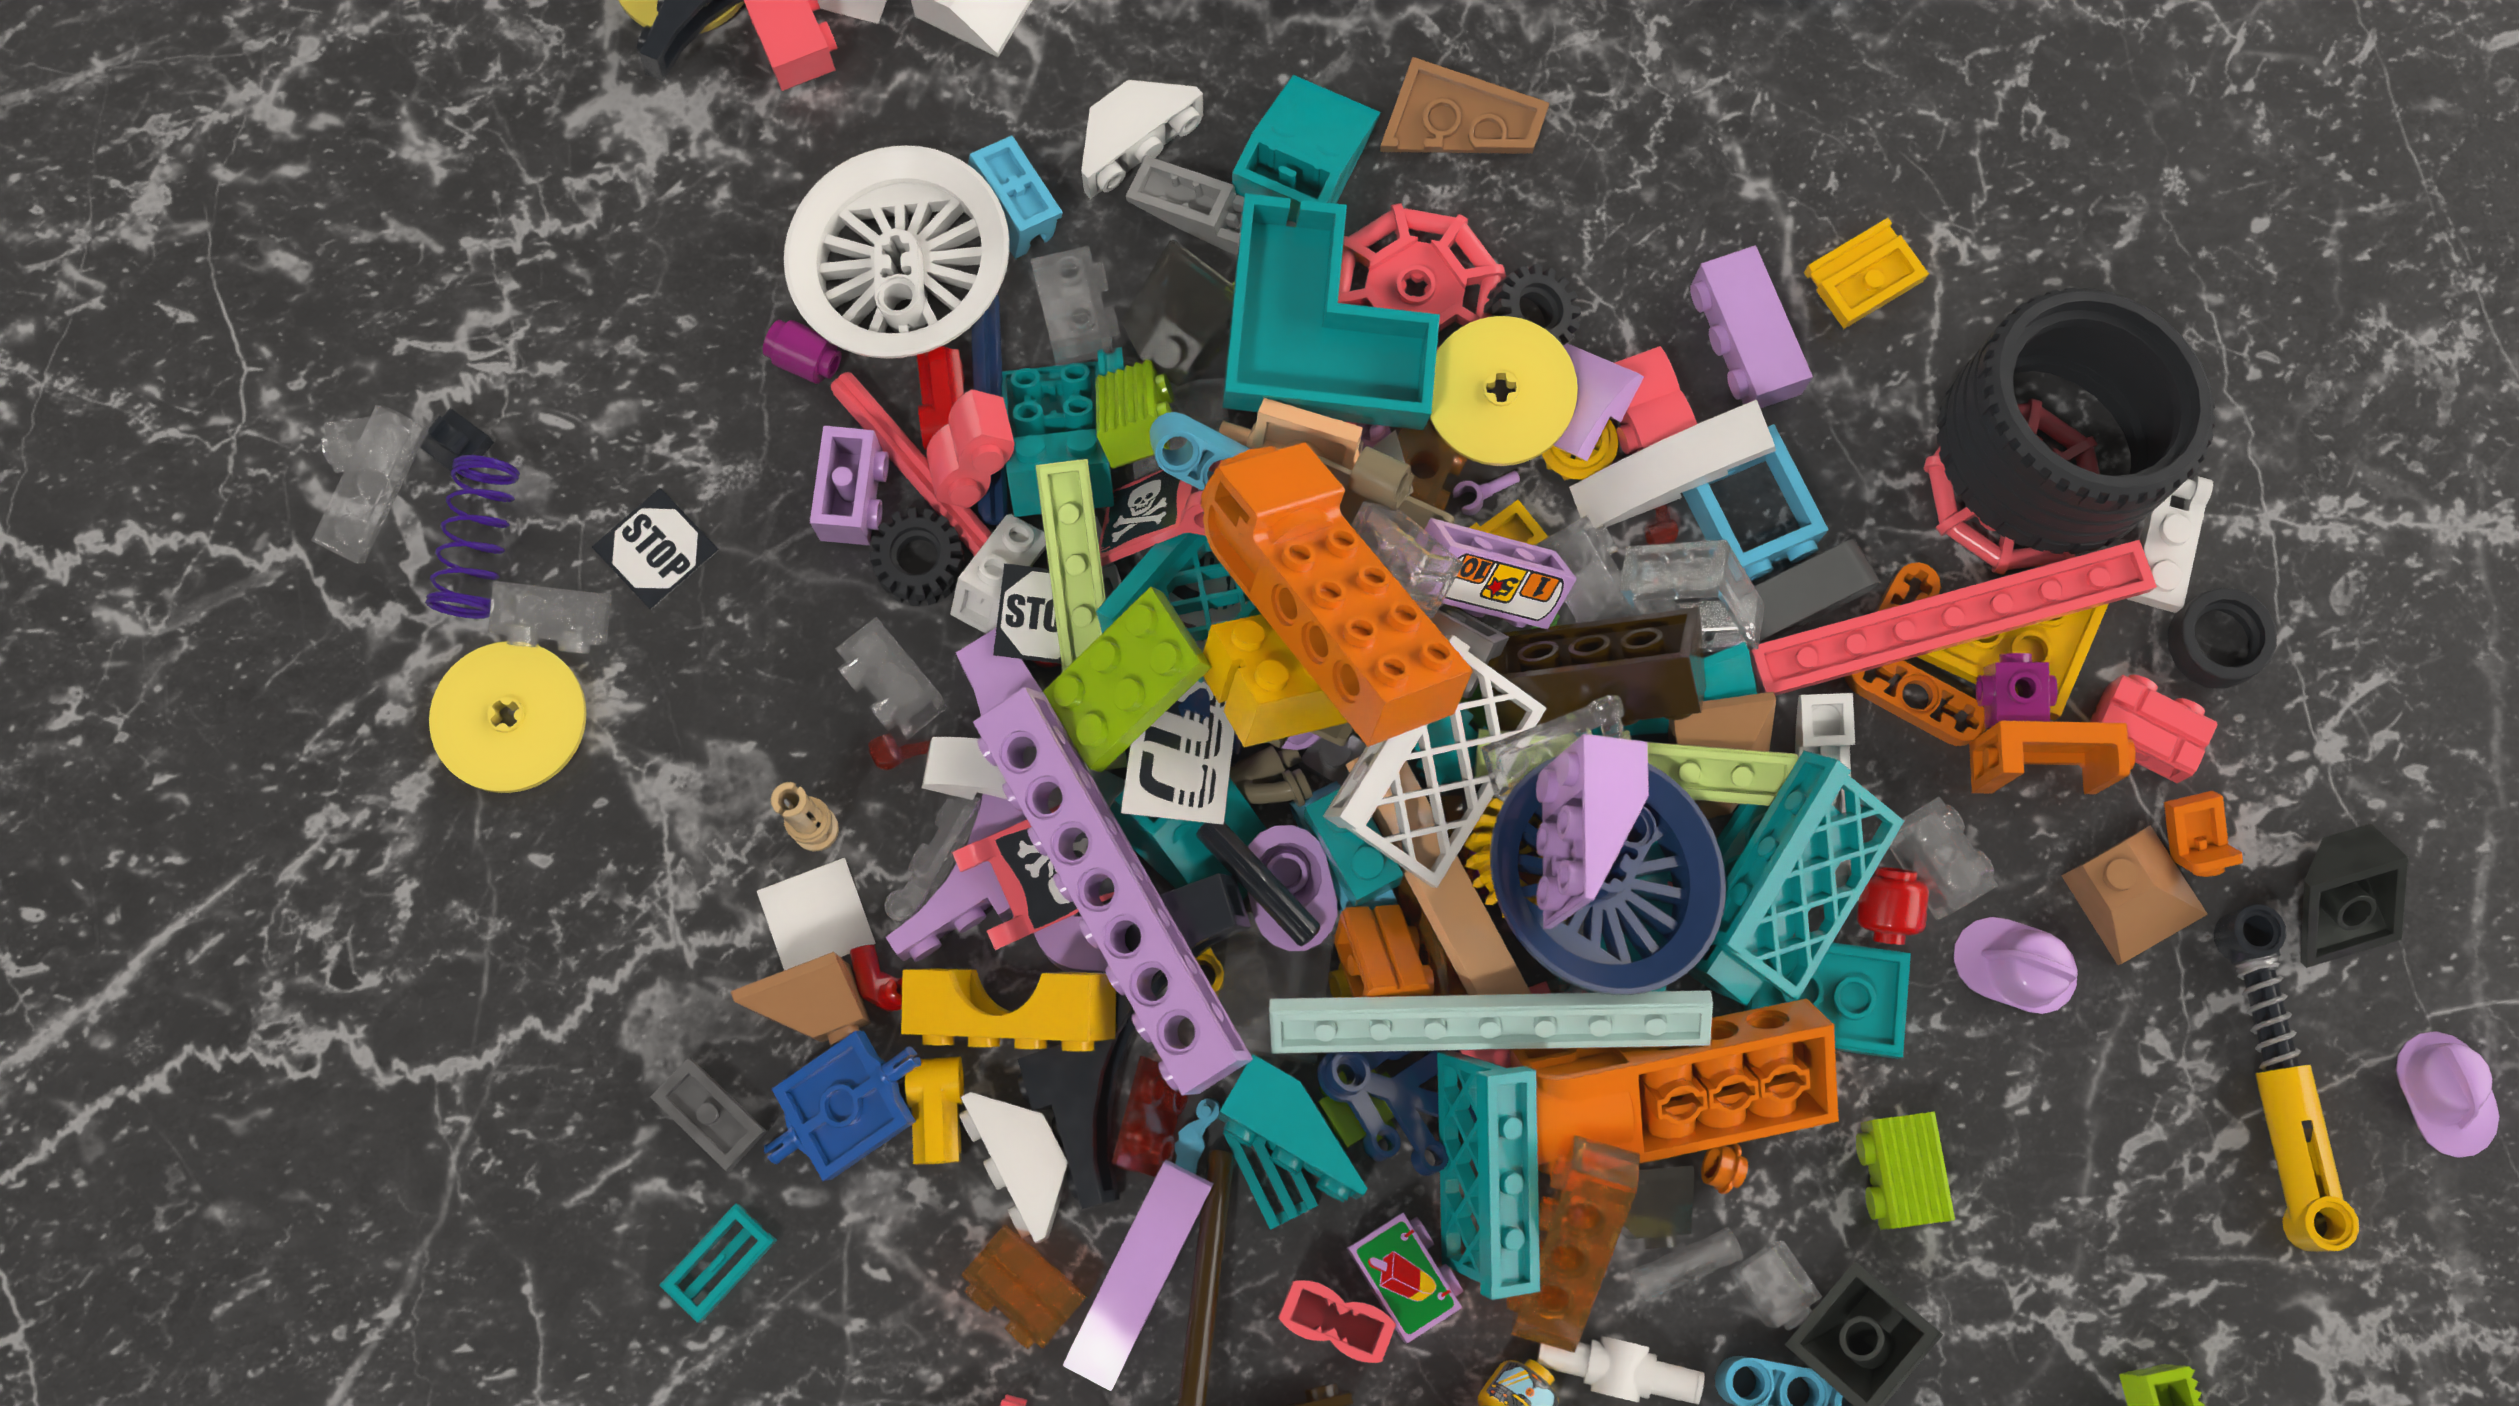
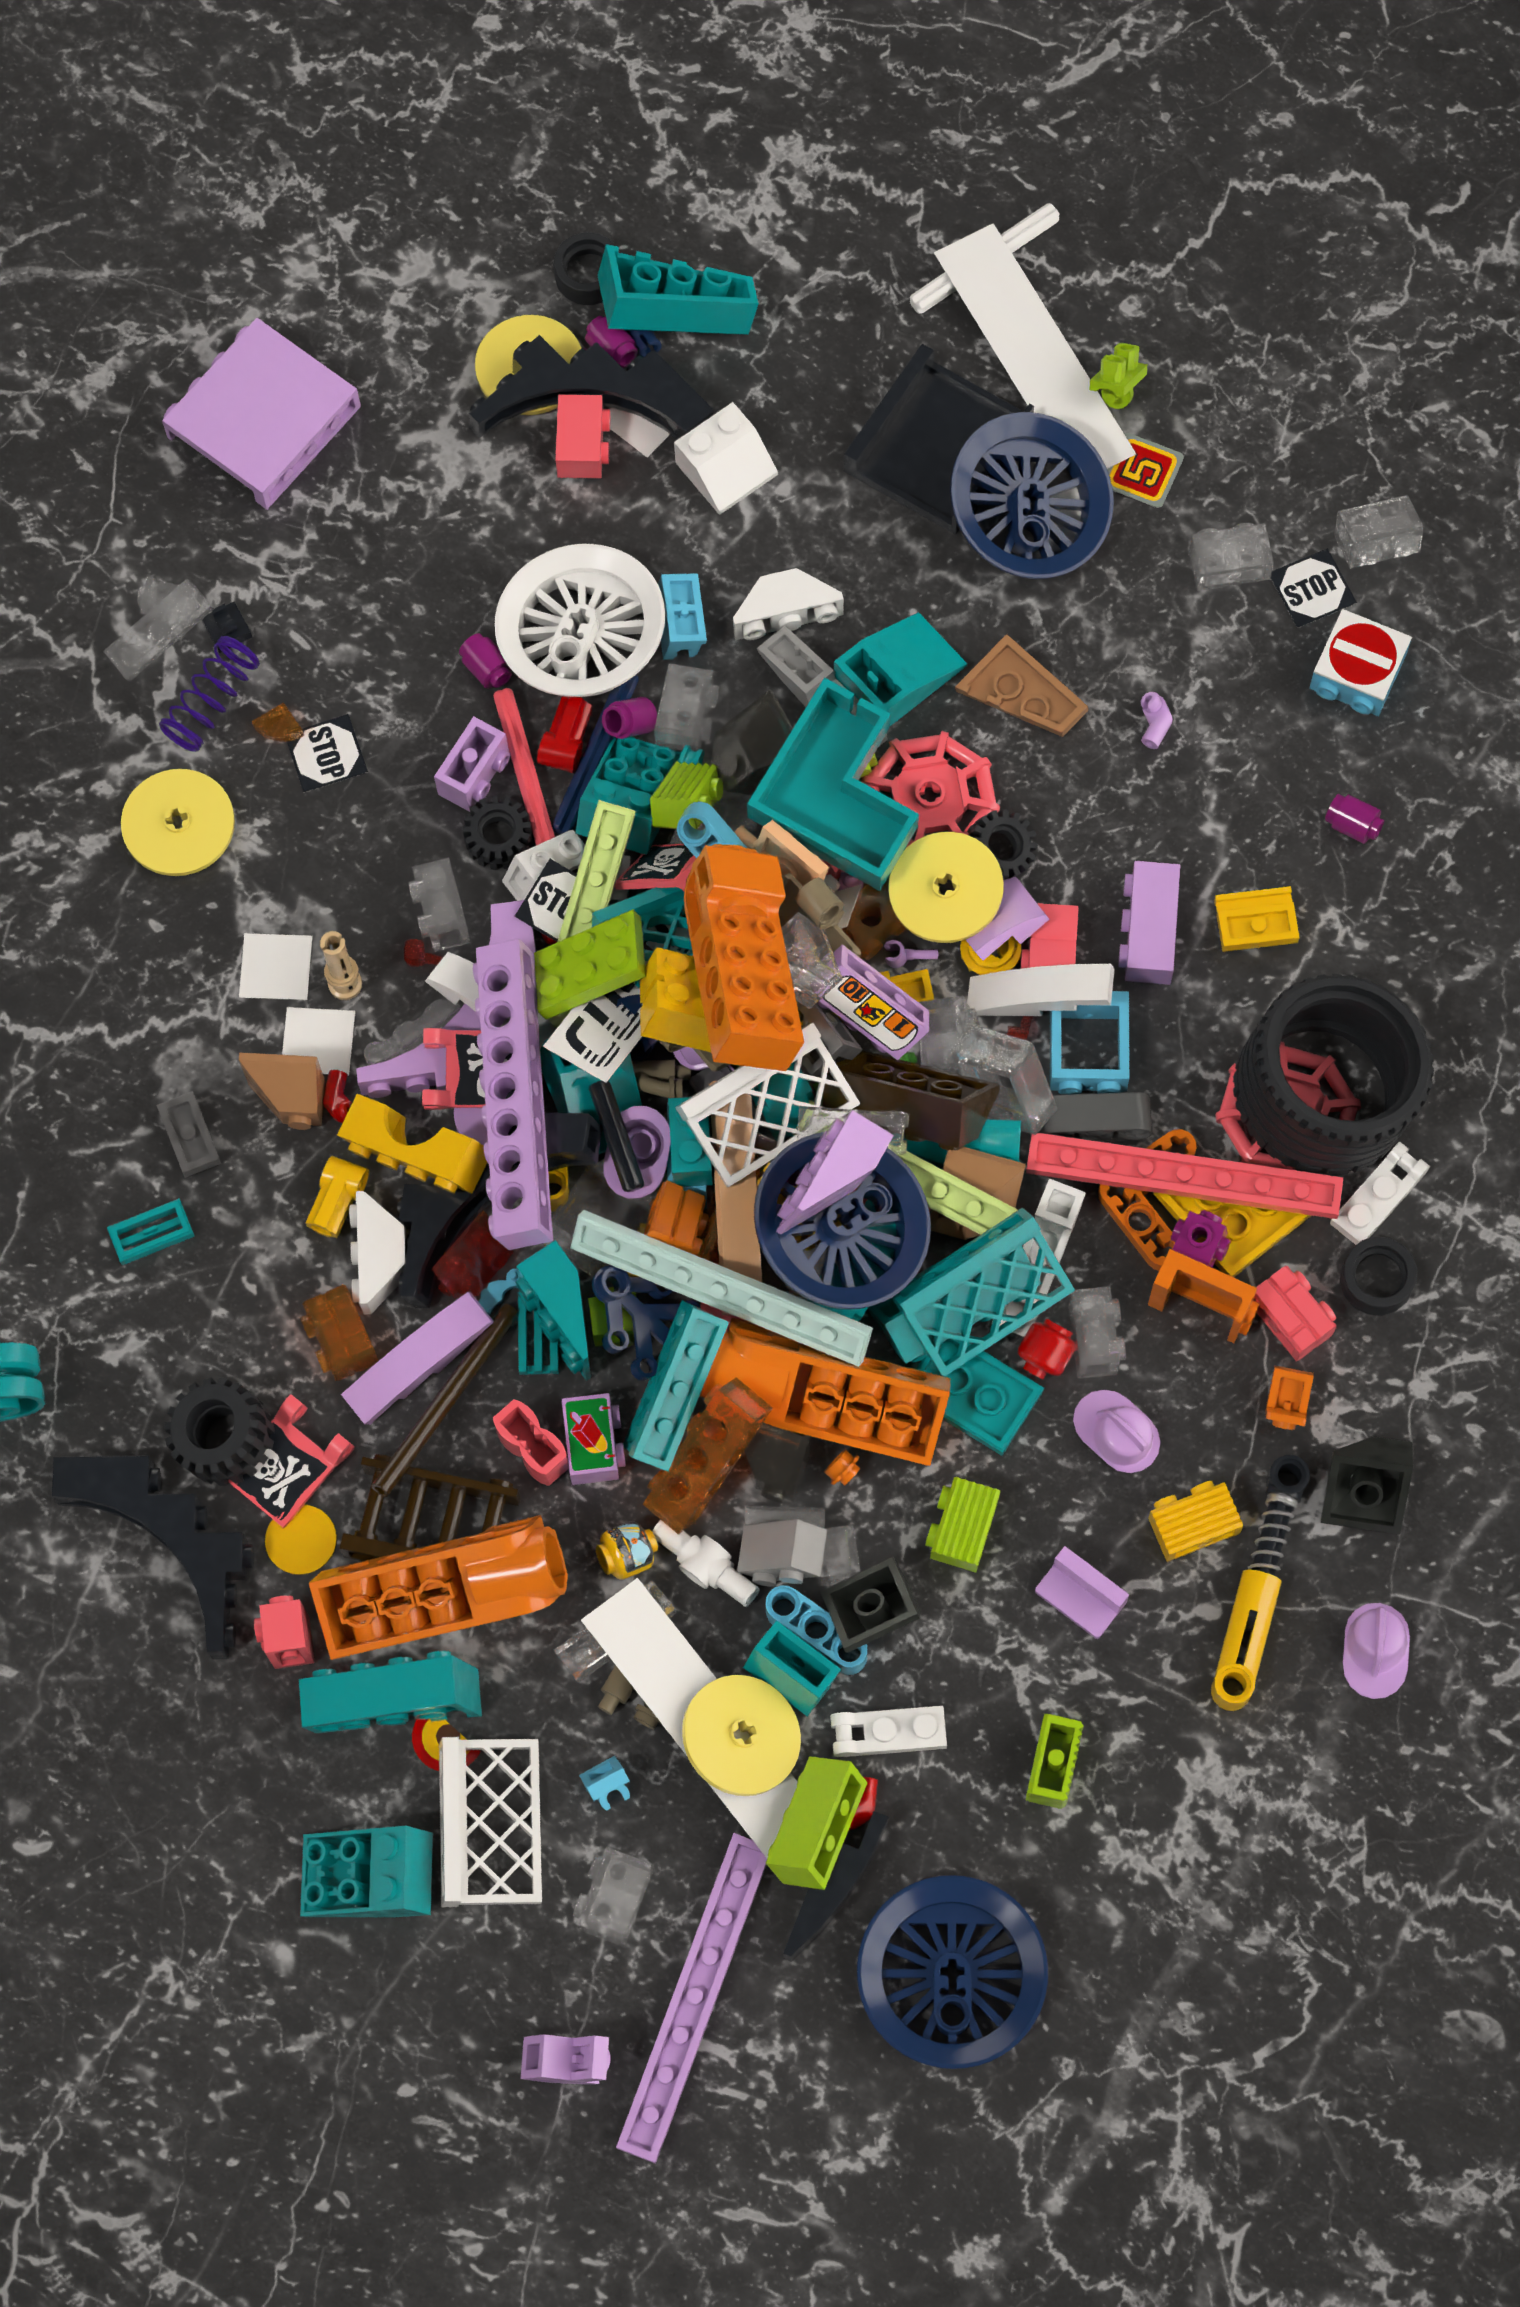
camera: 30 degrees right, 5 degrees down
(376, 156) = (262, 411): none -> lavender panel
(549, 613) = (236, 764): clear brick -> none
(579, 538) = (278, 725): none -> clear orange tile
(717, 845) = (275, 966): none -> white sticker
(843, 1105) = (277, 1165): blue plate -> none
(970, 449) = (564, 773): coral brick -> none
(1014, 345) = (629, 717): none -> magenta brick
(1632, 84) = (1158, 717): none -> lavender arm
(1717, 1319) = (781, 1552): none -> light grey brick
(1916, 107) = (1354, 818): none -> magenta brick
(2082, 1189) = (1082, 1593): none -> lavender panel
(2134, 895) = (1224, 1417): medium nougat slope -> none
(2170, 1036) = (1195, 1520): none -> yellow brick

